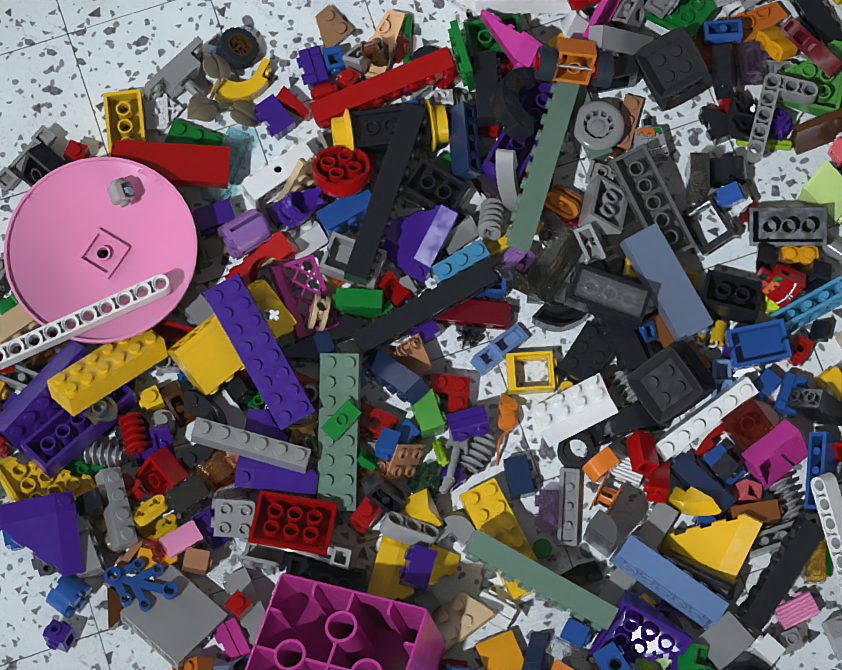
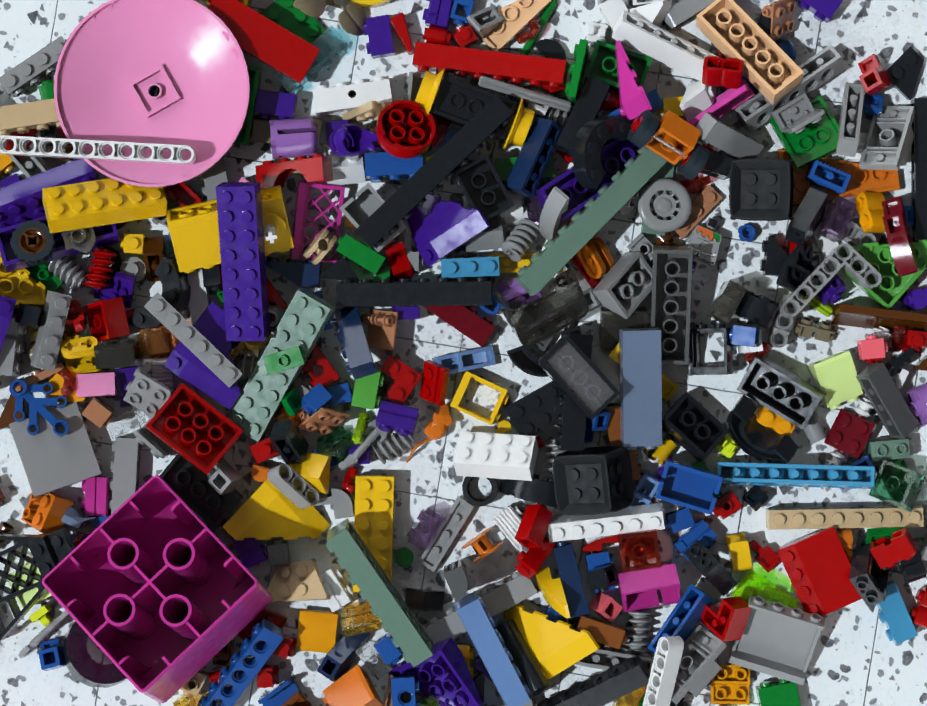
camera: 30 degrees right, 15 degrees up
(69, 441) = (33, 253): none -> black wheel
(121, 192) = (195, 46): light grey head -> none
(239, 605) = (113, 471): red brick -> none
(372, 540) = (259, 472): none -> orange brick
(375, 51) = (501, 26): reddish brown piece -> none
(417, 567) = (283, 521): dark purple brick -> none
(430, 94) = (524, 93): none -> light grey axle
(454, 505) = (348, 479): none -> red arm
(468, 330) = (437, 334): black gear -> none
(484, 378) = (434, 382): none -> red plate
(519, 477) = (418, 484): dark blue brick -> none
(534, 623) = (358, 620): none -> clear yellow brick
(590, 242) = (593, 315): light grey slope -> none
(600, 465) = (491, 516): orange brick -> none
(615, 98) = (695, 185): none -> clear red hinge
(681, 112) = (752, 232): none -> blue plate
(756, 179) = (777, 328): none -> light grey piece
(778, 166) = (823, 330): none -> dark tan hinge
(781, 283) = (742, 443): red torso -> none

